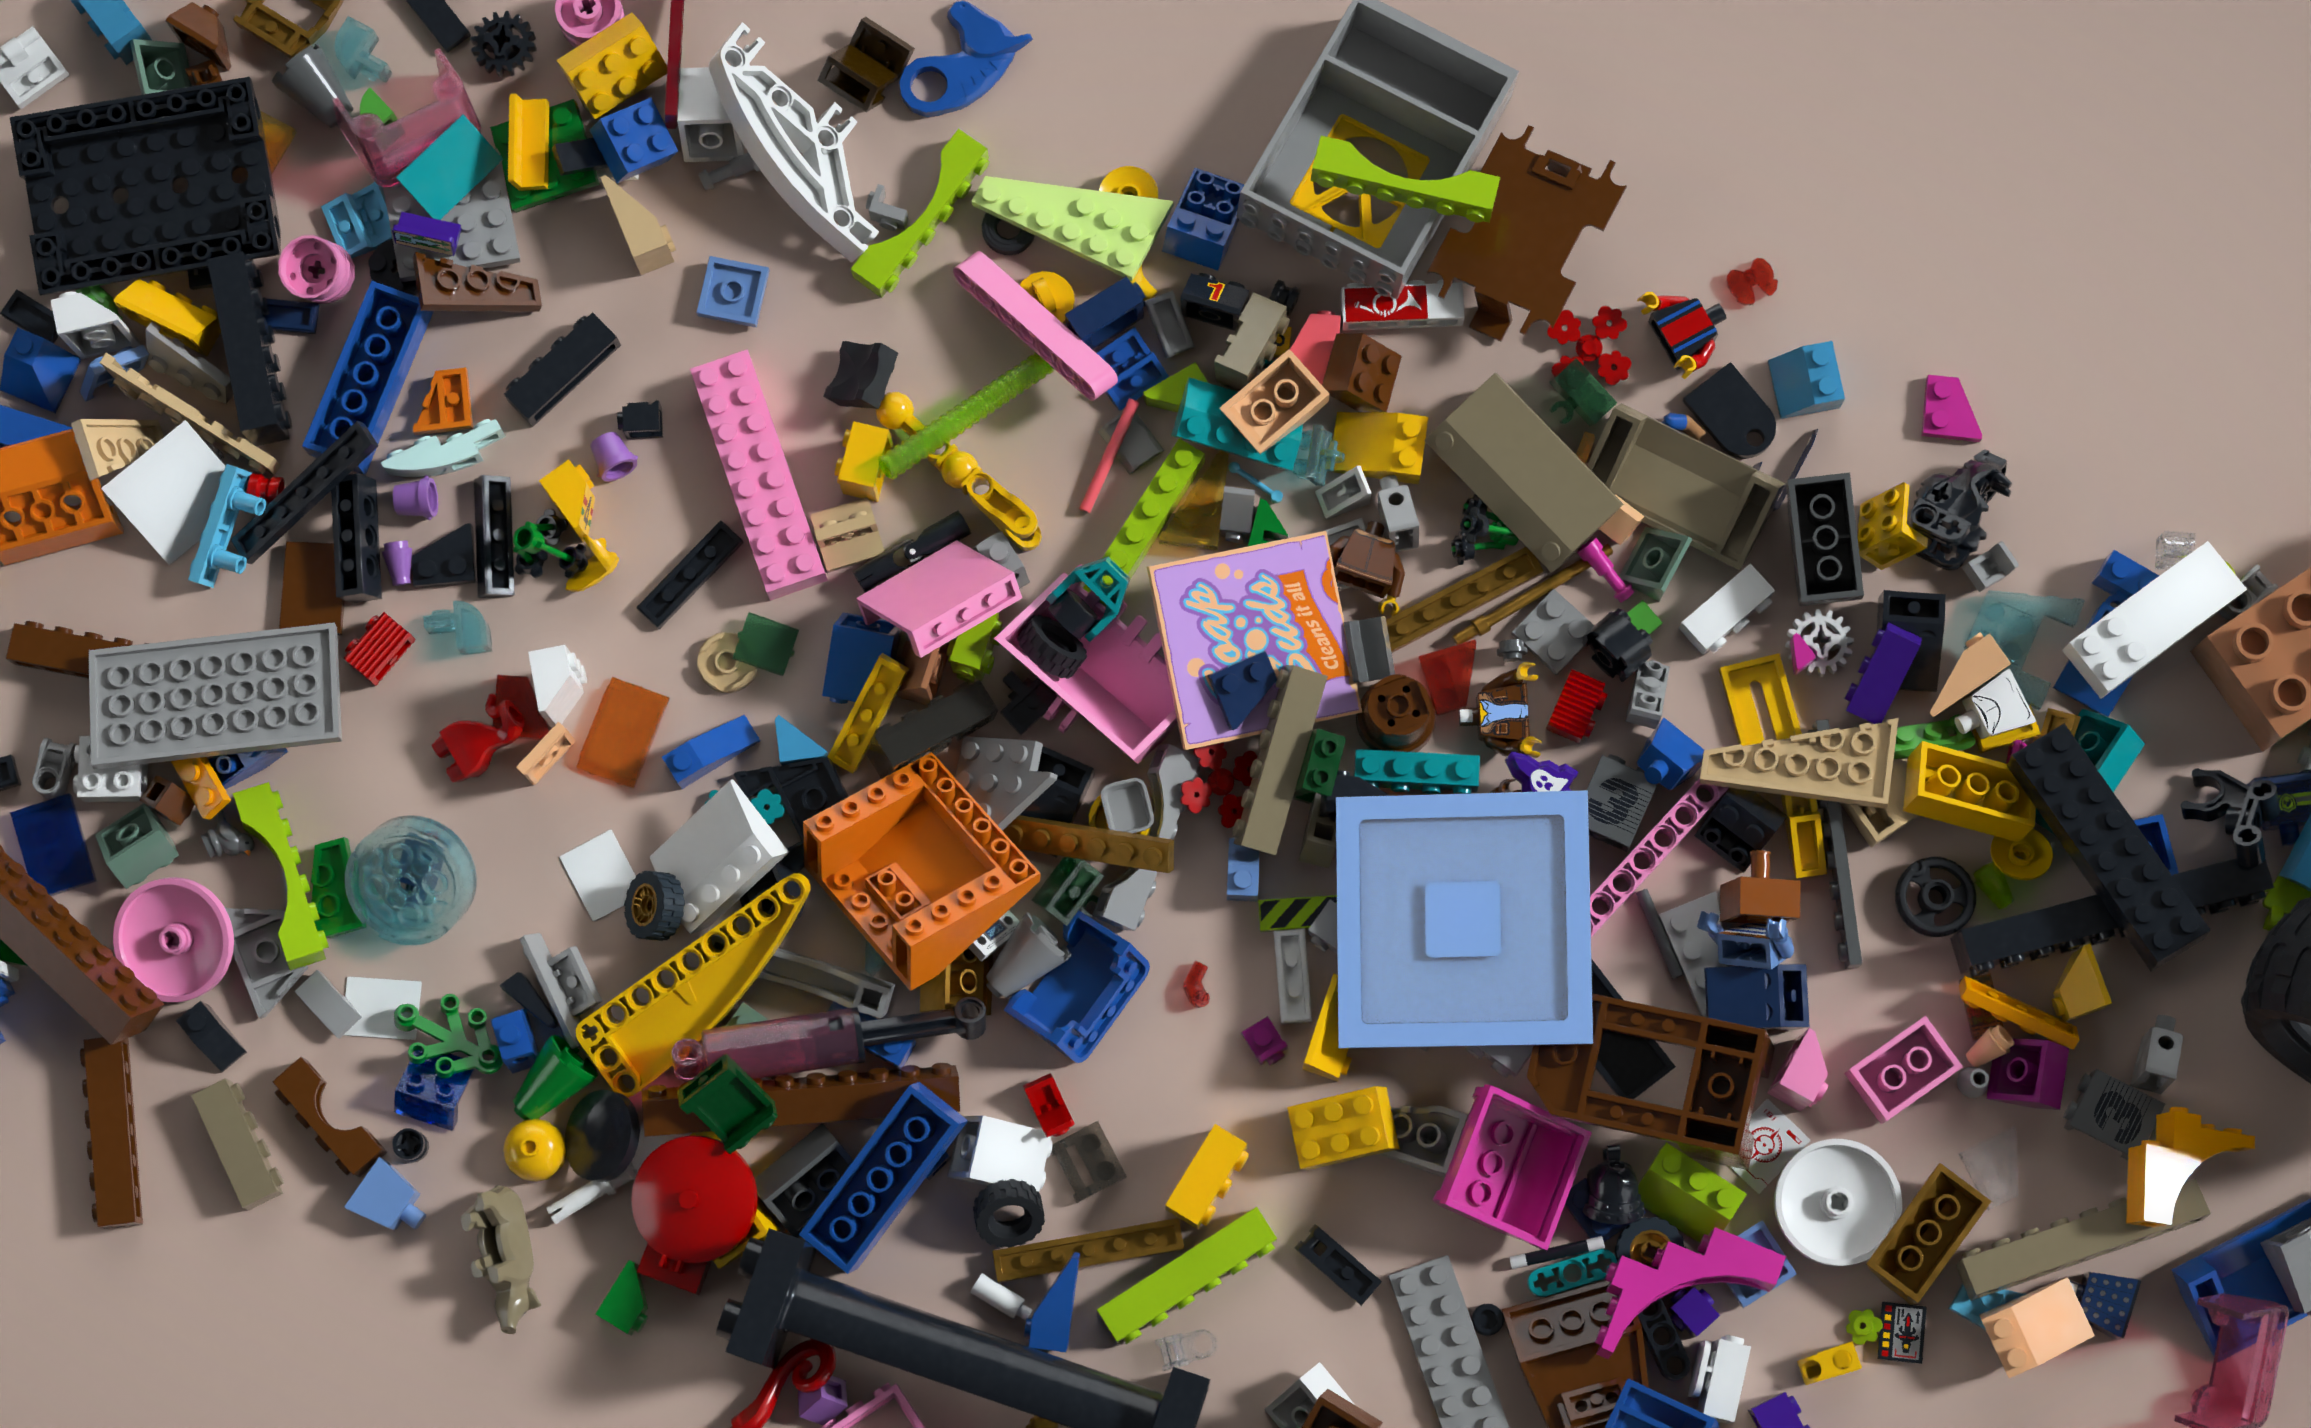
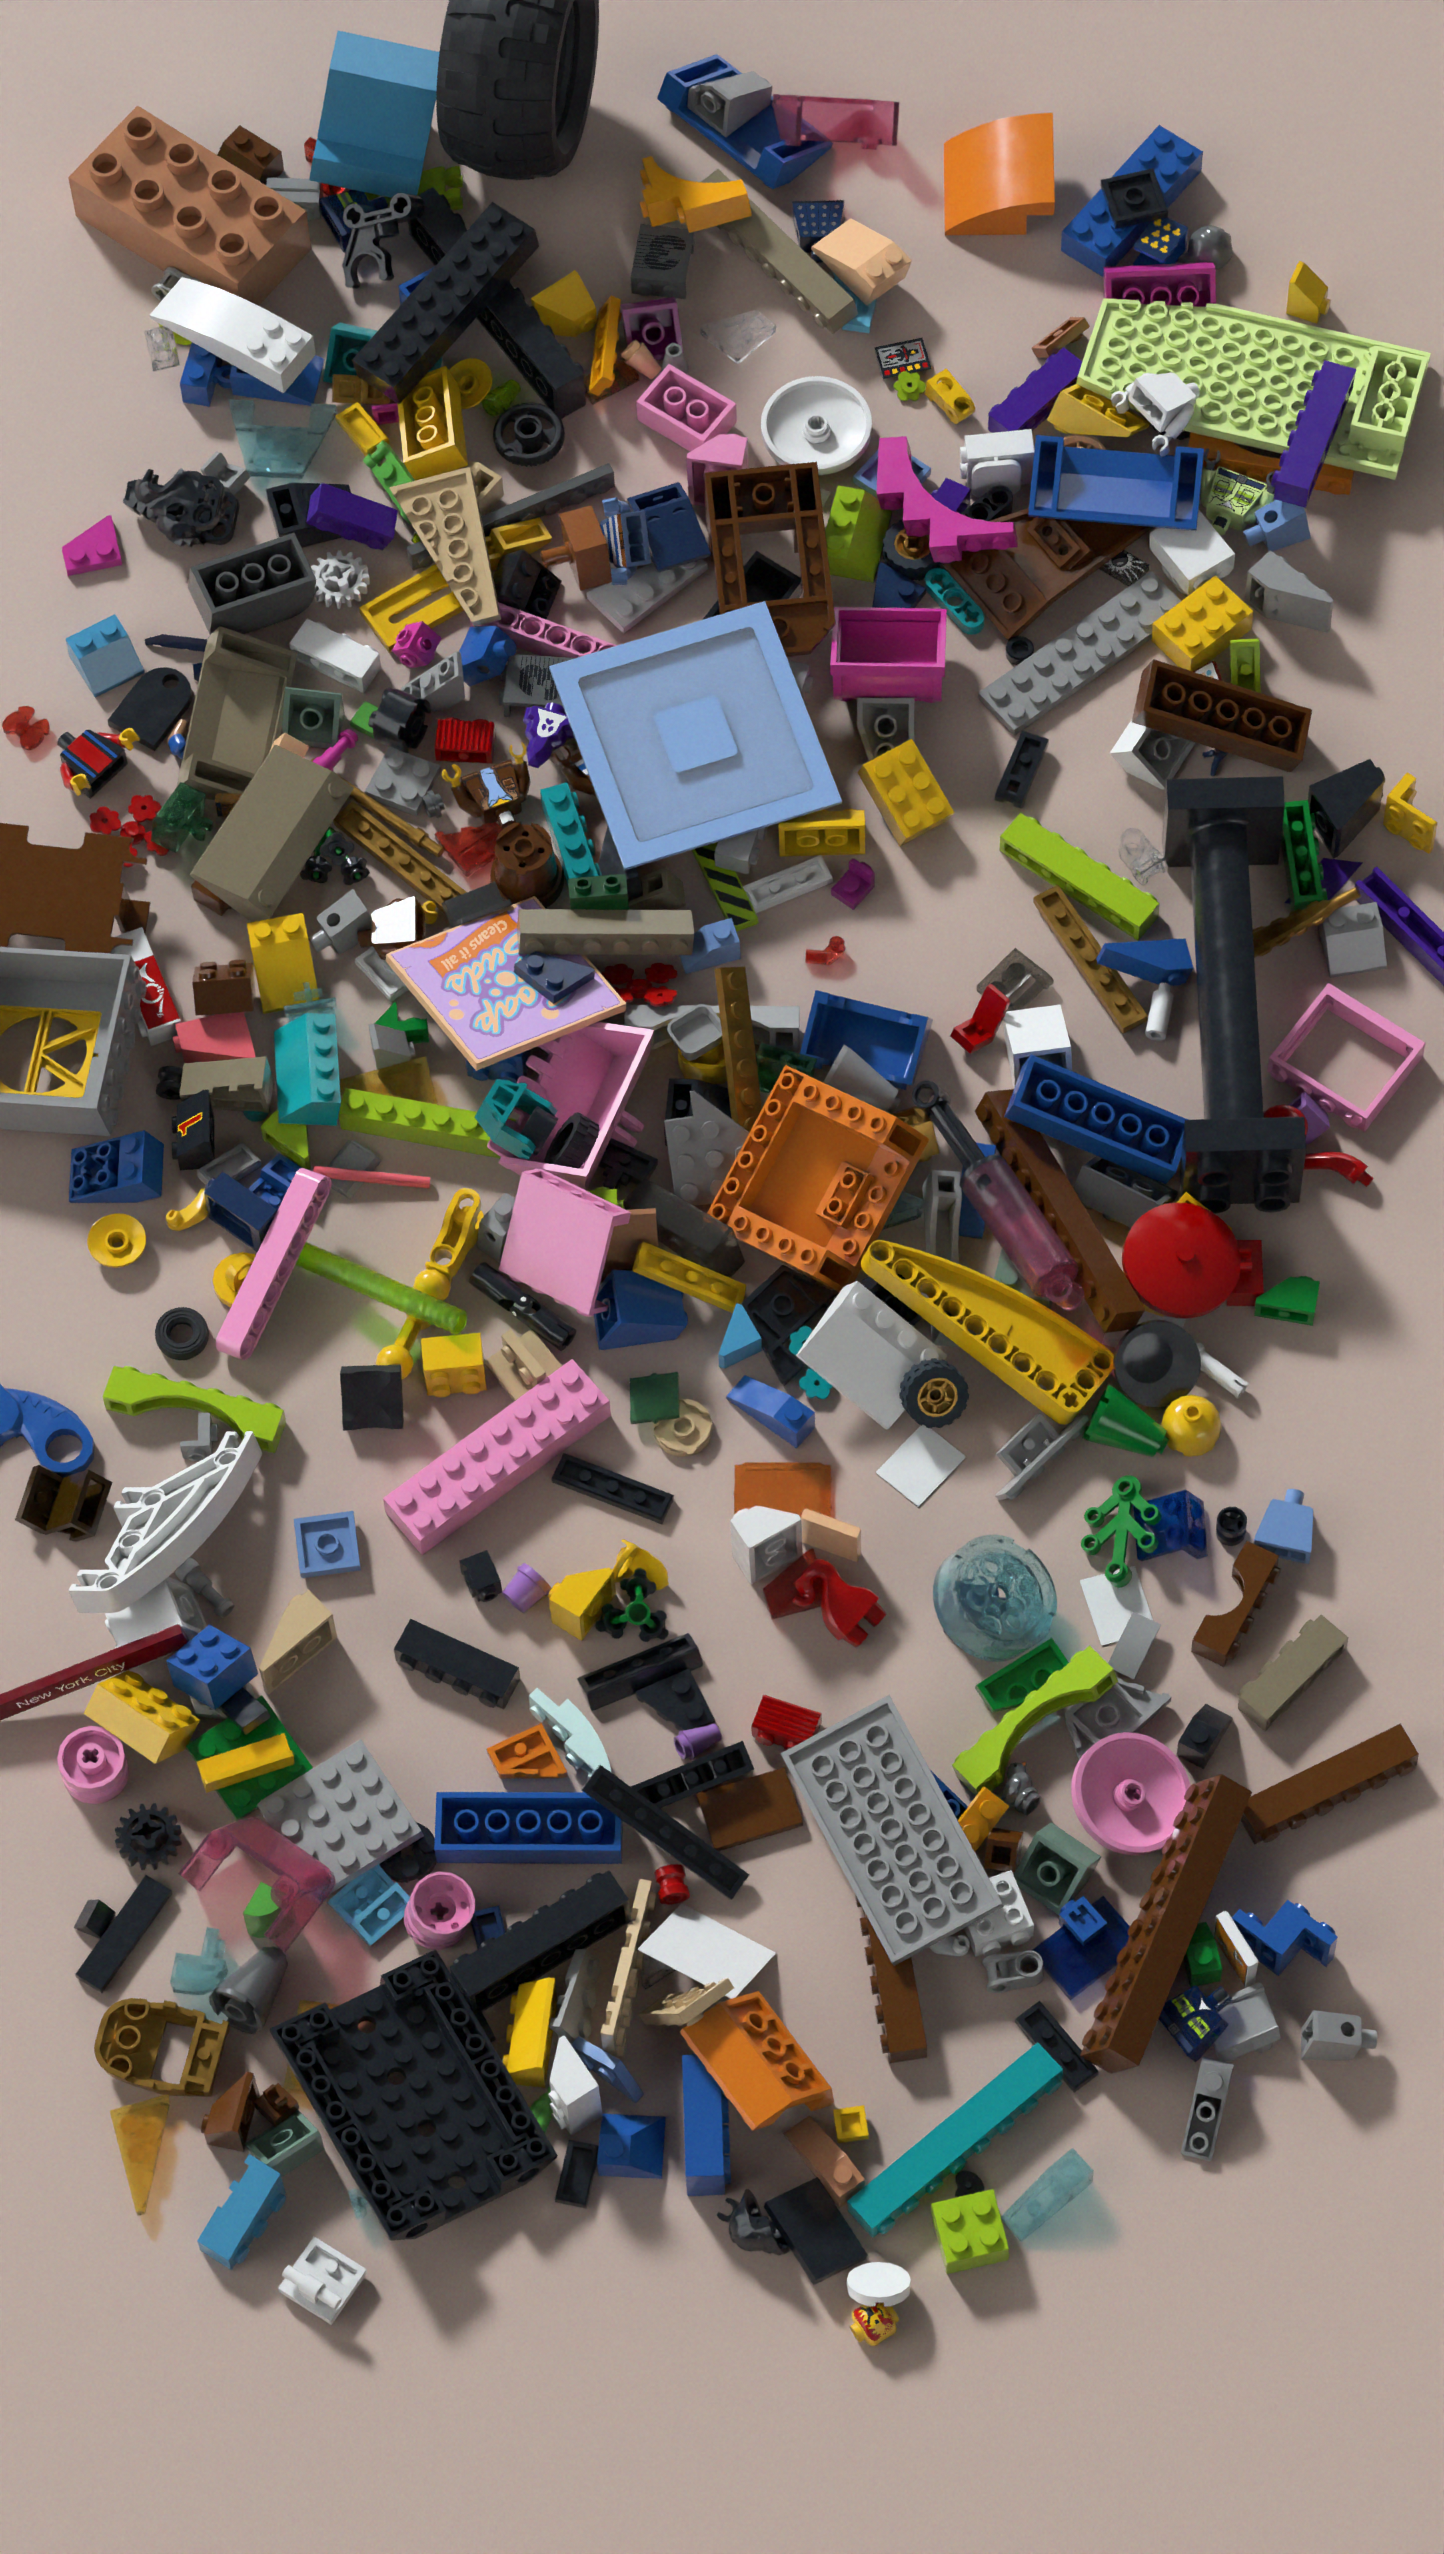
camera: 110 degrees left, 15 degrees down
(72, 847) = (1082, 1920): none -> blue bracket
(219, 527) = (708, 1907): medium azure plate -> none
(416, 498) = (630, 1745): medium lavender piece -> none
(427, 233) = (369, 1816): dark purple panel -> none
(449, 168) = (296, 1822): teal piece -> none
(462, 288) = (408, 1762): reddish brown wing -> none
(470, 626) = (735, 1653): clear light blue brick -> none
(504, 1252) = (1295, 1406): dark tan animal -> none
(515, 1040) = (1100, 1468): blue torso -> none
(525, 994) = (1055, 1481): black slope -> none
(728, 1103) = (1090, 1240): dark green panel -> none
(1006, 1194) = (1086, 1019): black tyre -> none
(1092, 224) = (157, 1256): yellowish green wing -> none
(1207, 1177) = (990, 881): yellow brick -> none
(1276, 402) = (279, 1032): light nougat slope -> none
(1276, 496) = (359, 1036): medium azure hinge -> none
(1344, 493) = (337, 974): white slope -> none
(1466, 195) = (43, 1031): lime arch -> none
(1557, 1252) = (935, 603): black bar -> none
(1613, 1191) = (874, 583): black helmet -> none
(1659, 933) = (643, 621): dark grey bar -> none
(1706, 692) = (416, 645): none -> dark pink brick
(1801, 654) = (359, 580): dark pink slope -> none
(1884, 530) = (213, 542): yellow bracket -> none
(1927, 1234) = (818, 350): pearl gold slope -> none
(1975, 666) = (331, 454): light nougat slope -> none
(1995, 708) = (349, 430): white torso -> none
(2158, 1057) = (602, 241): light grey torso -> none

